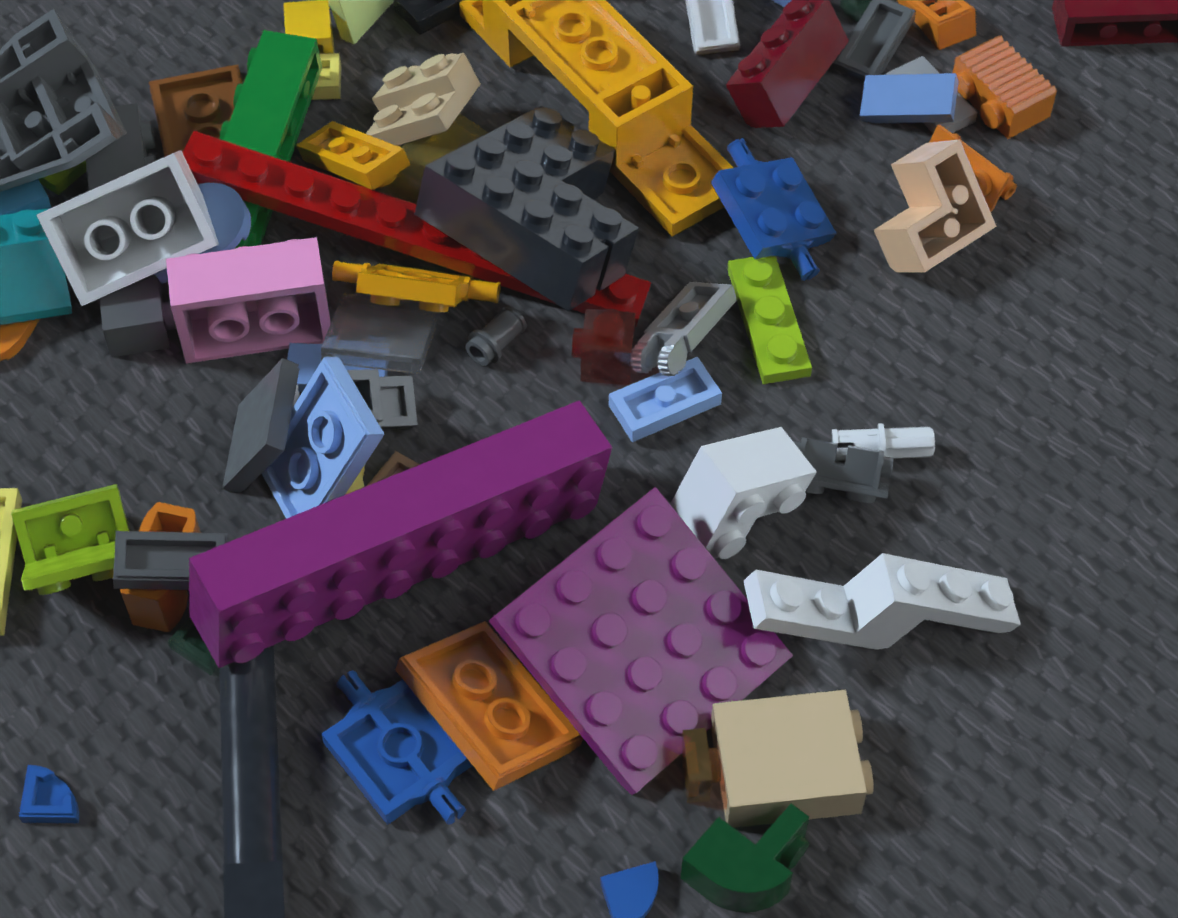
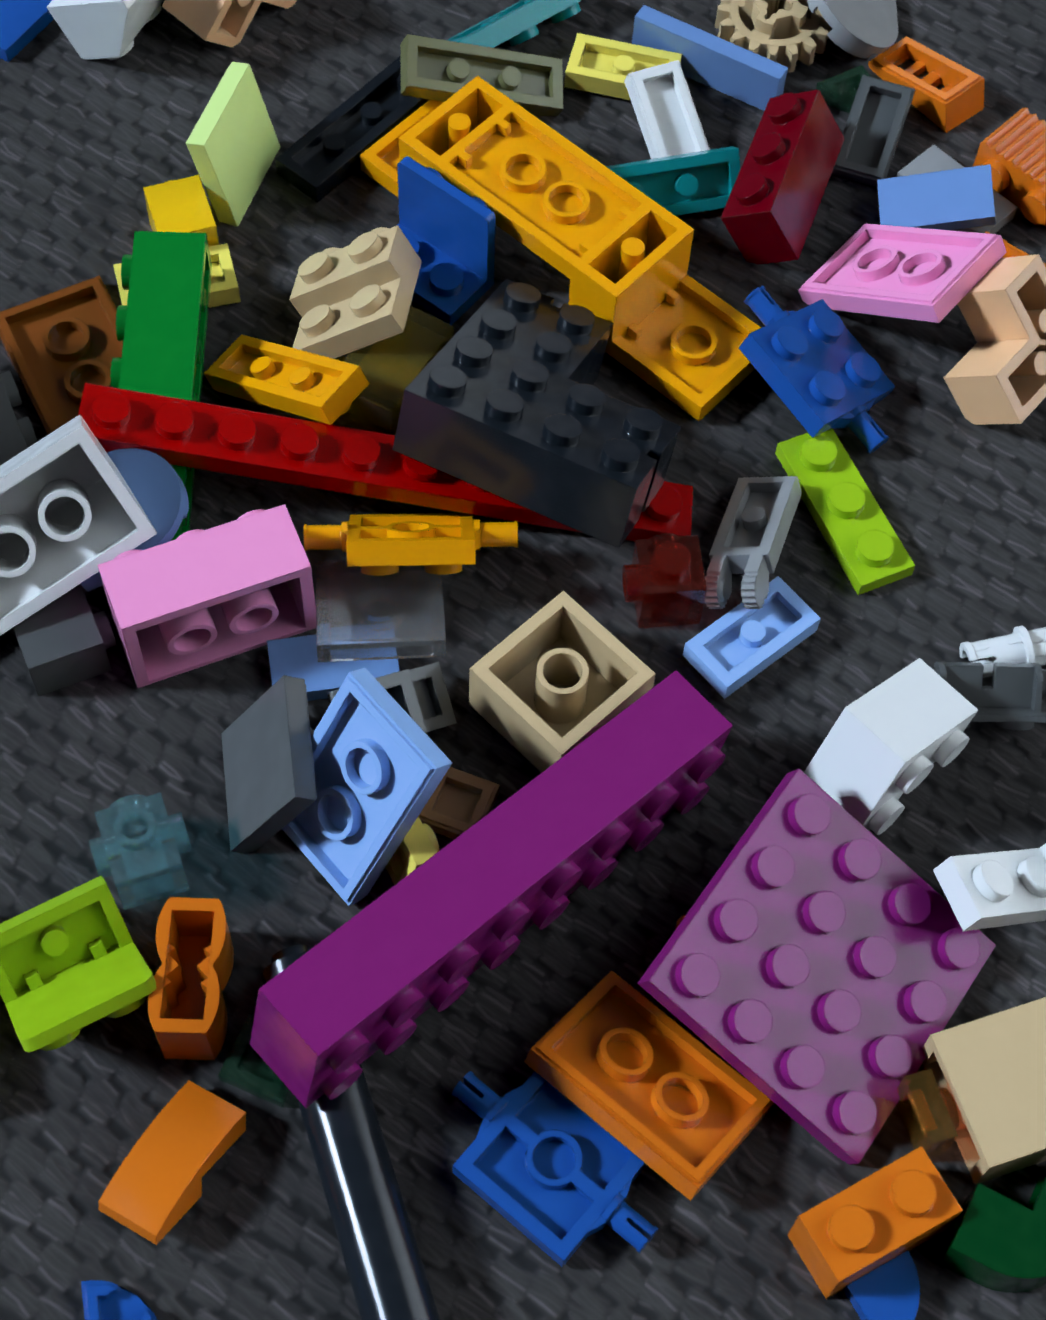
camera: 15 degrees left, 5 degrees up
(108, 696) = (168, 1162): none -> orange slope
(152, 470) = (141, 849): none -> clear light blue brick
(158, 558) = (205, 977): dark grey tile -> none
(492, 393) = (556, 681): none -> tan brick
(495, 336) = (521, 588): dark grey pin -> none
(505, 68) = (450, 236): none -> blue bracket
(631, 831) = (874, 1221): none -> orange brick
(704, 56) = (685, 181): none -> teal plate
(861, 144) = (903, 271): none -> bright pink tile

